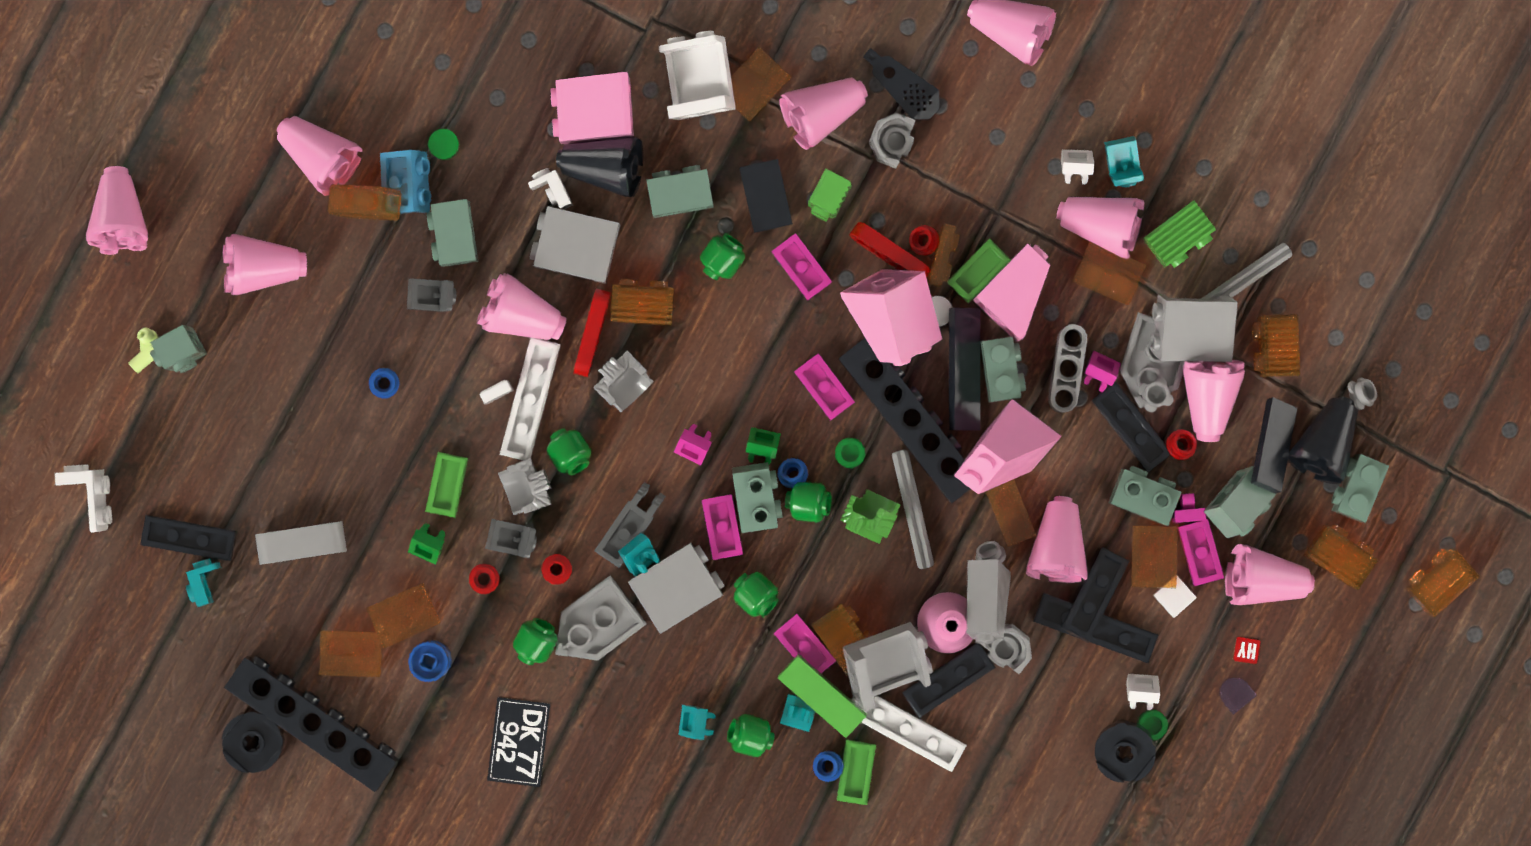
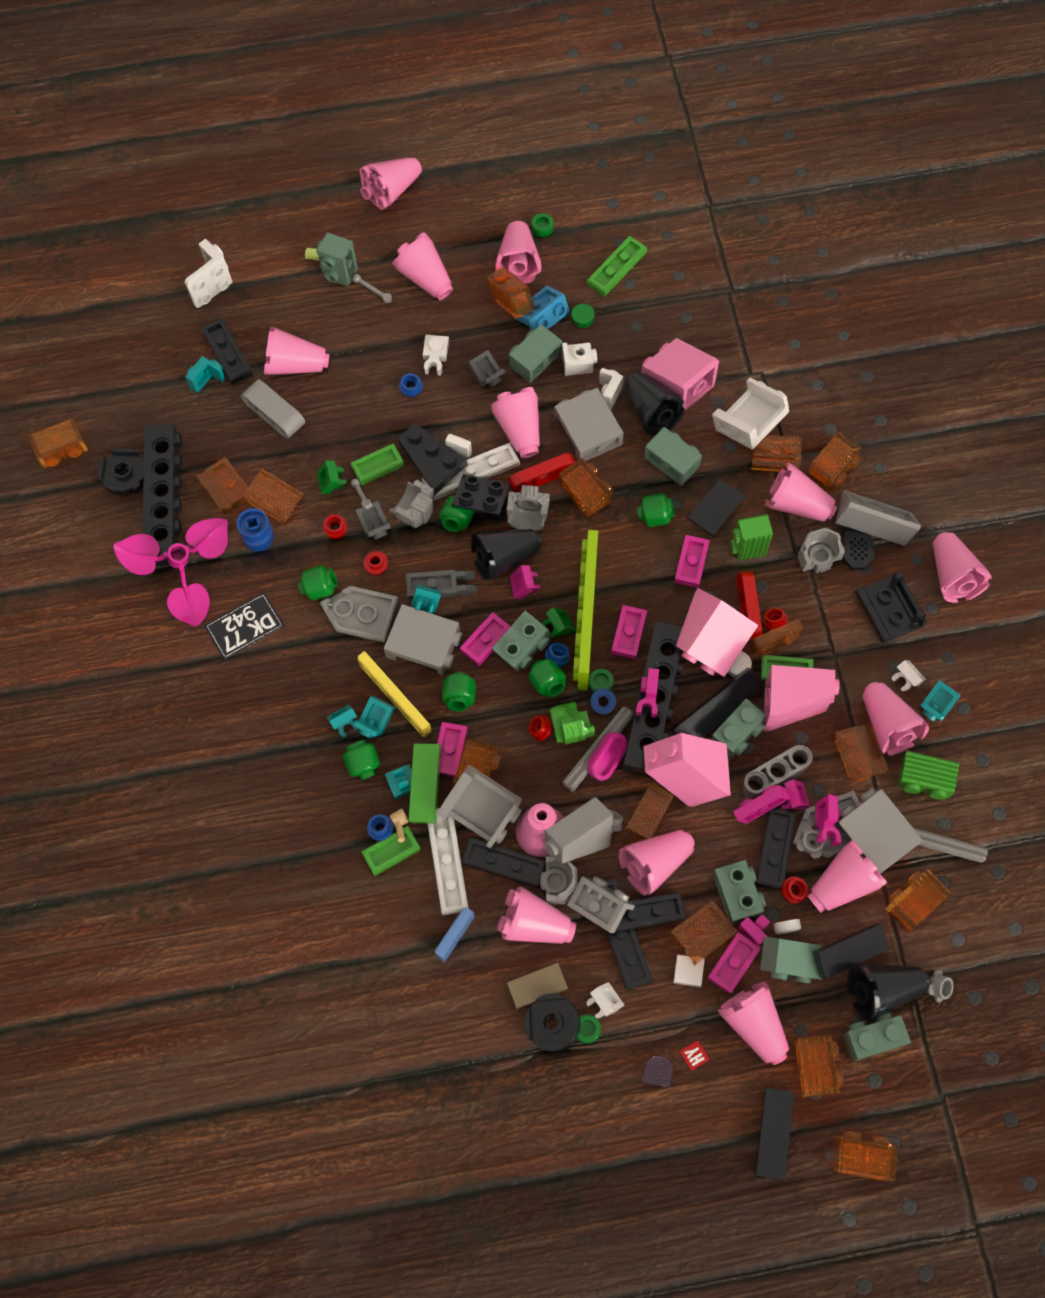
camera: 50 degrees right, 20 degrees down
(167, 785) = (57, 443): none -> clear orange brick
(255, 325) = (387, 298): none -> light grey hinge
(256, 478) = (292, 354): none -> bright pink cone
(298, 95) = (542, 225): none -> green tile
(362, 326) = (434, 352): none -> white plate
(371, 791) = (142, 550): none -> dark pink plant
(412, 59) = (616, 266): none -> bright green tile
(486, 427) = (433, 458): none -> black wing
(491, 534) = (366, 503): none -> light grey hinge
(492, 203) = (578, 358): none -> white brick
(571, 415) = (481, 494): none -> black hinge
(647, 439) = (502, 550): none -> black cone
(709, 656) = (394, 694): none -> light yellow tile
(718, 692) = (374, 717): none -> teal bracket
(764, 404) = (585, 610): none -> lime plate
(812, 39) = (834, 461): none -> clear orange brick
(833, 743) = (399, 819): none -> tan hand
(851, 546) = (540, 727): none -> red plate
(878, 473) = (611, 701): none -> blue plate
(901, 52) = (876, 518): none -> light grey slope
(902, 422) = (649, 686): none -> dark pink plate
(928, 508) = (607, 756): none -> dark pink tile
(980, 776) = (454, 934): none -> medium blue tile
(997, 119) = (891, 607): none -> black piece
(1025, 698) = (534, 920): none -> bright pink cone
(1060, 629) = (600, 903): none -> light grey bracket
(1081, 738) = (538, 983): none -> dark tan tile
(1088, 397) = (754, 808): none -> dark pink plate
(1146, 364) = (826, 816): none -> dark pink plate
(1208, 479) = (787, 926): none -> white tile
(1363, 638) = (774, 1134): none -> black tile

